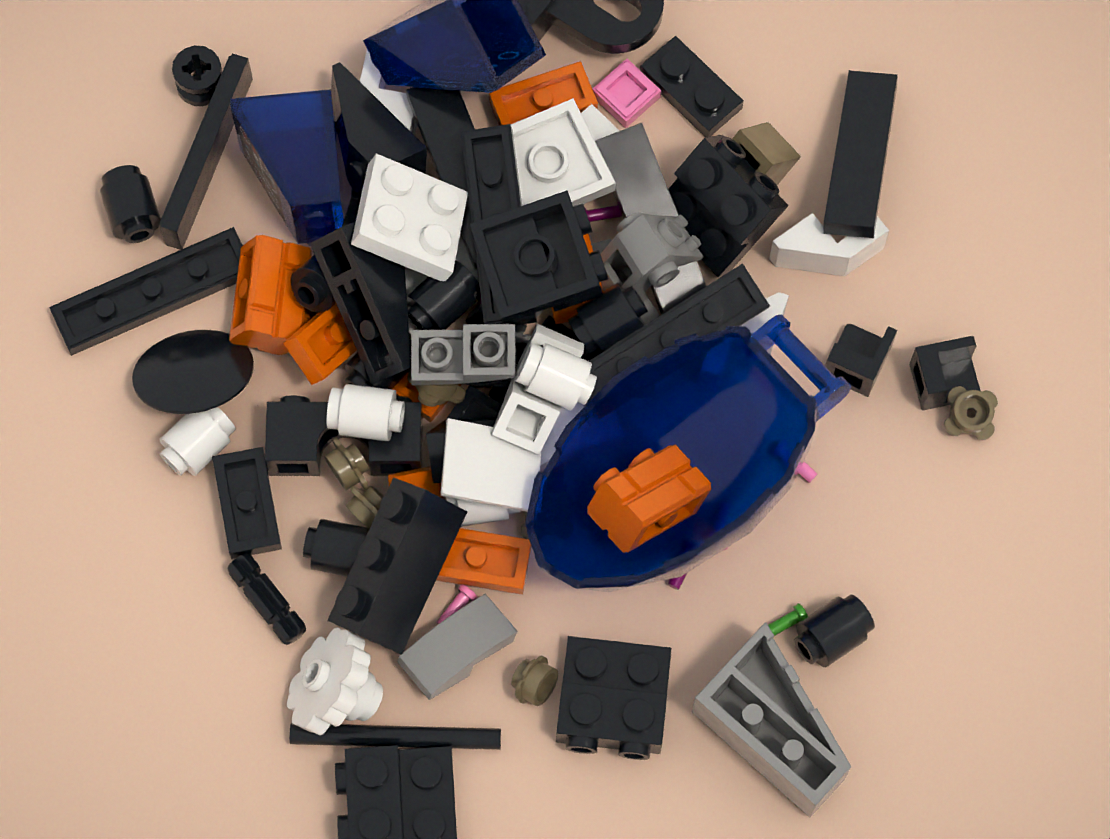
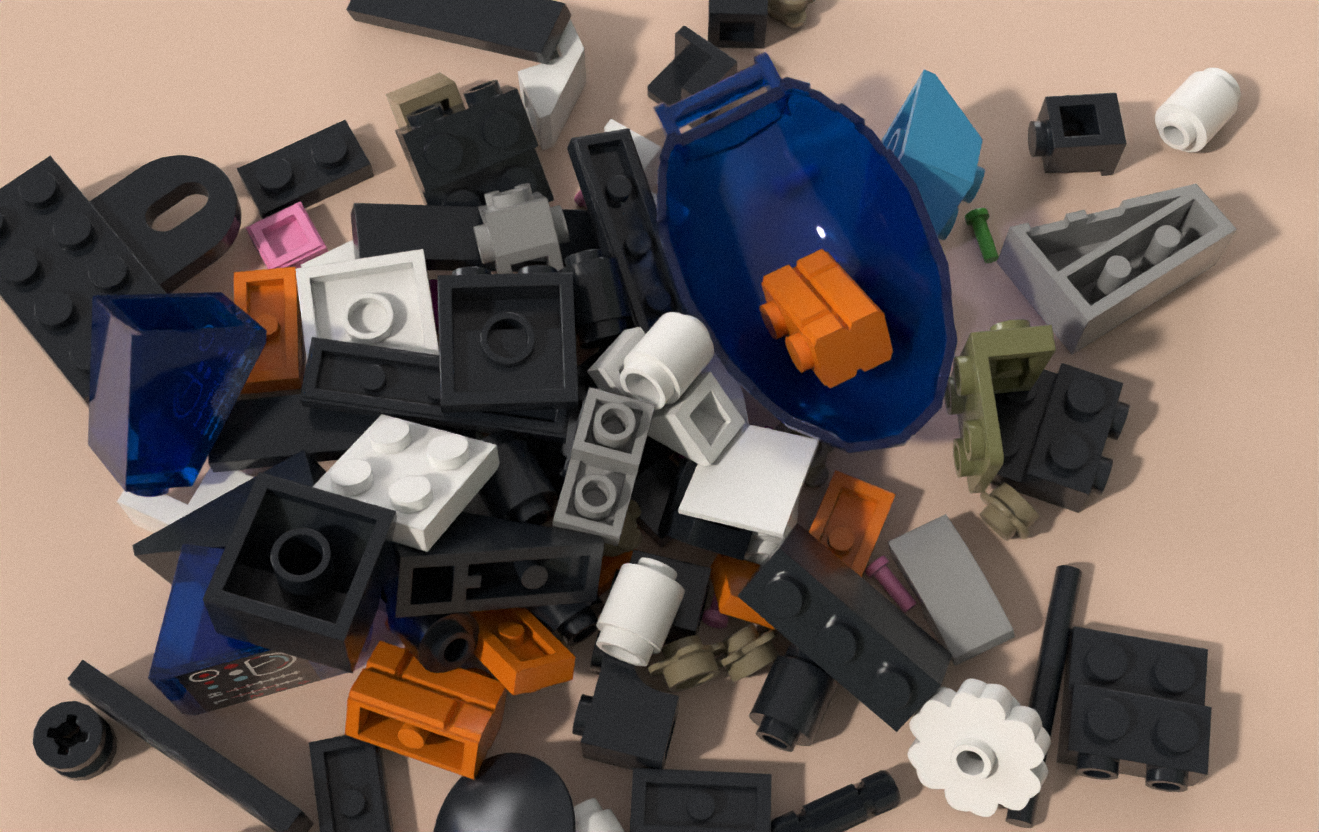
camera: 75 degrees left, 5 degrees down
(314, 167) = (302, 572): none -> black slope
(601, 613) = (991, 363): none -> olive bracket
(802, 545) = (937, 150): none -> dark azure slope
(833, 630) = (1011, 184): black brick -> none
(904, 658) = (1078, 133): none -> black brick
(955, 778) = (1198, 109): none -> white brick

